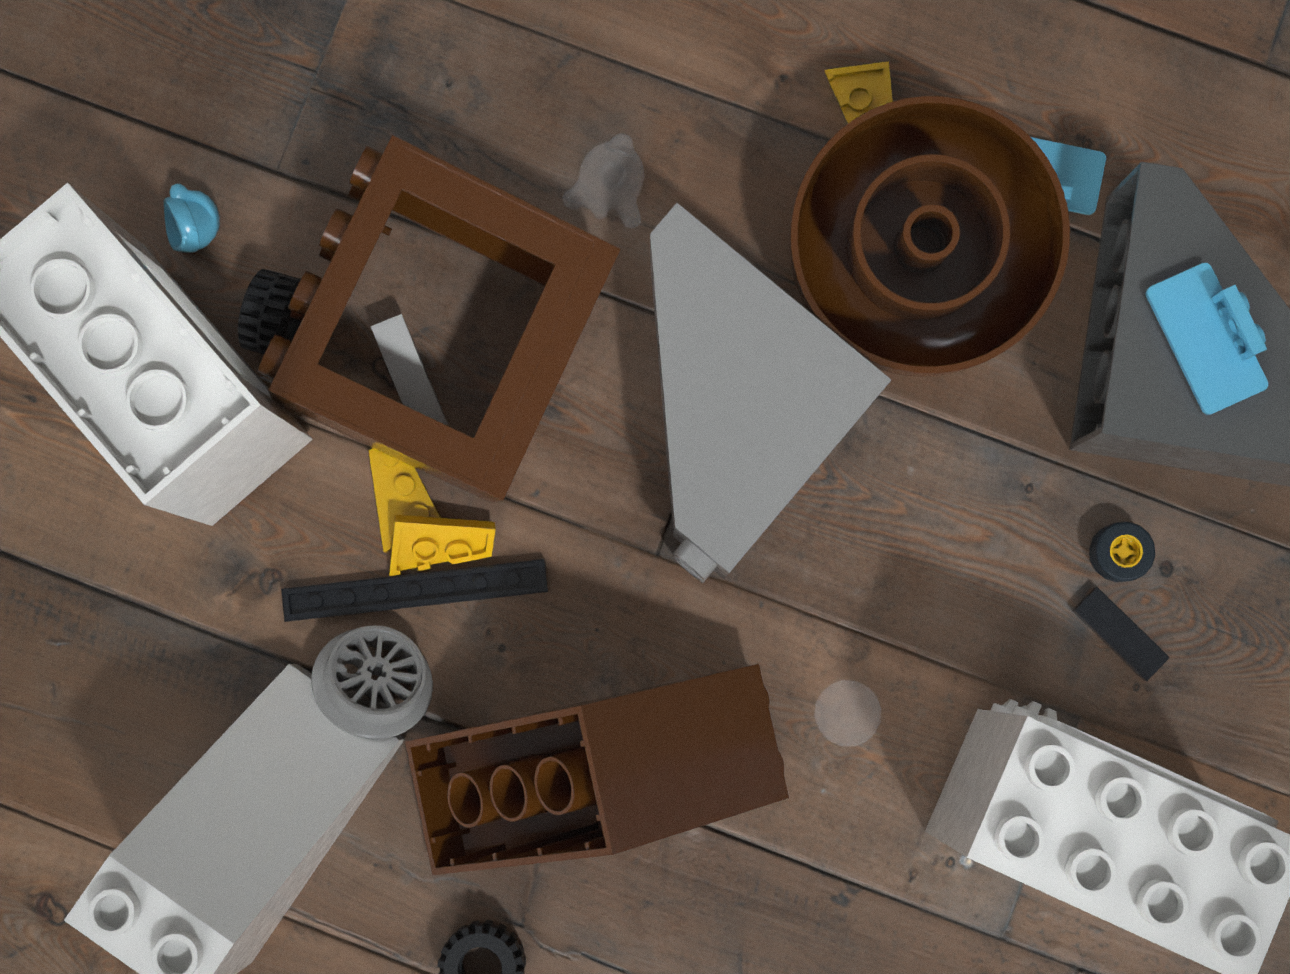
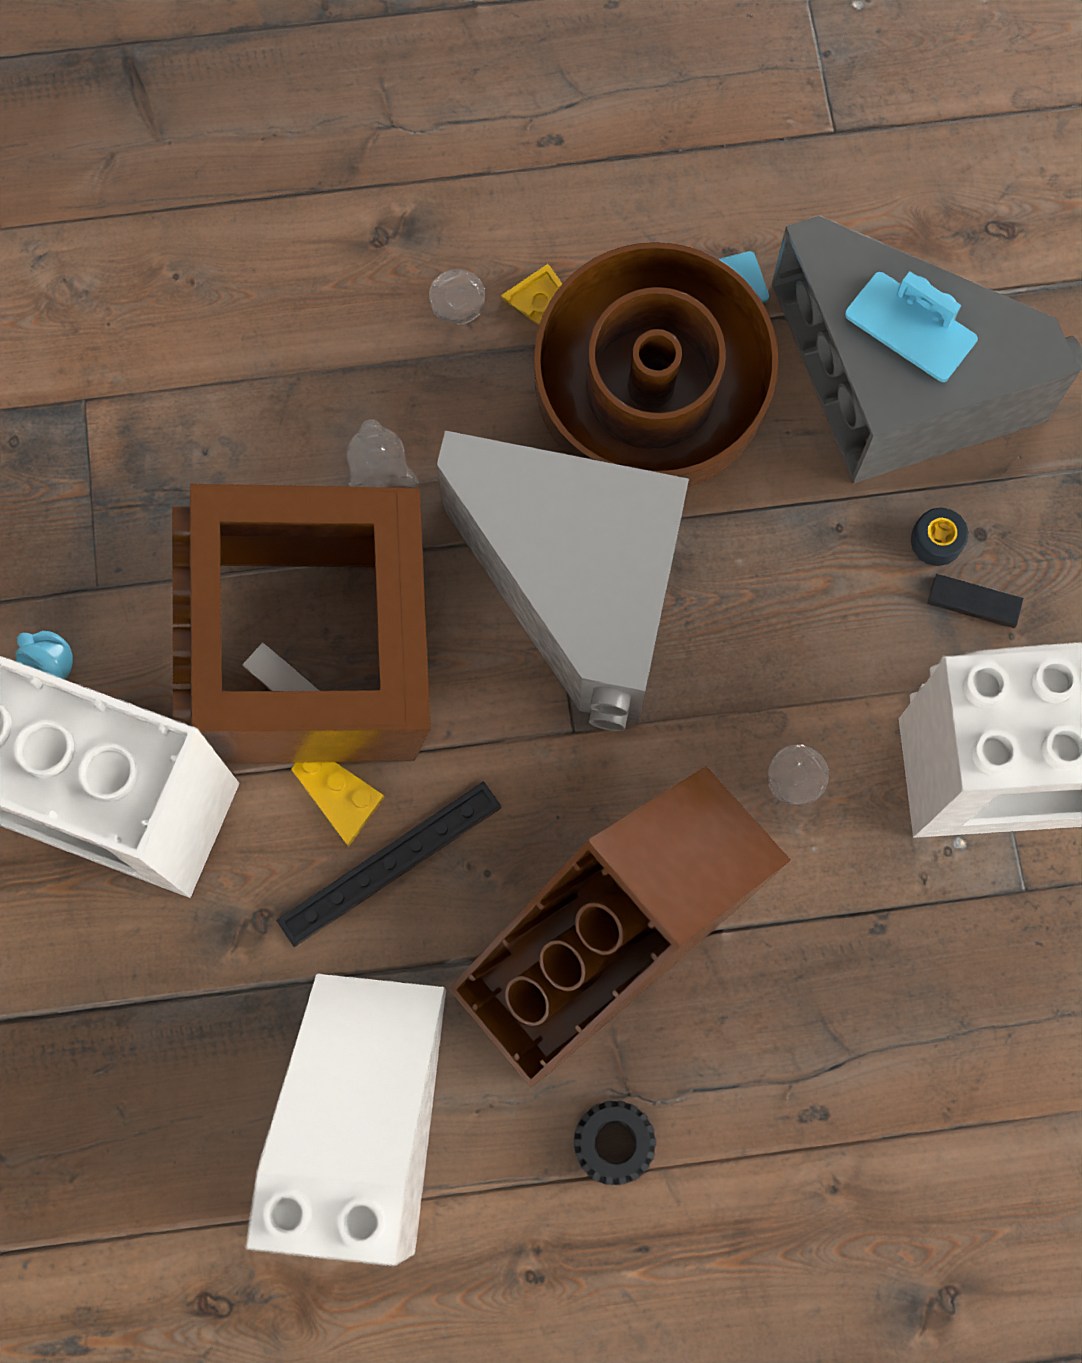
camera: 30 degrees left, 10 degrees down
(266, 310) = (151, 685): black tyre -> none
(331, 680) = (394, 948): light grey piece -> none
(434, 540) = (386, 811): yellow wing -> none
(780, 47) = (457, 296): none -> clear tile

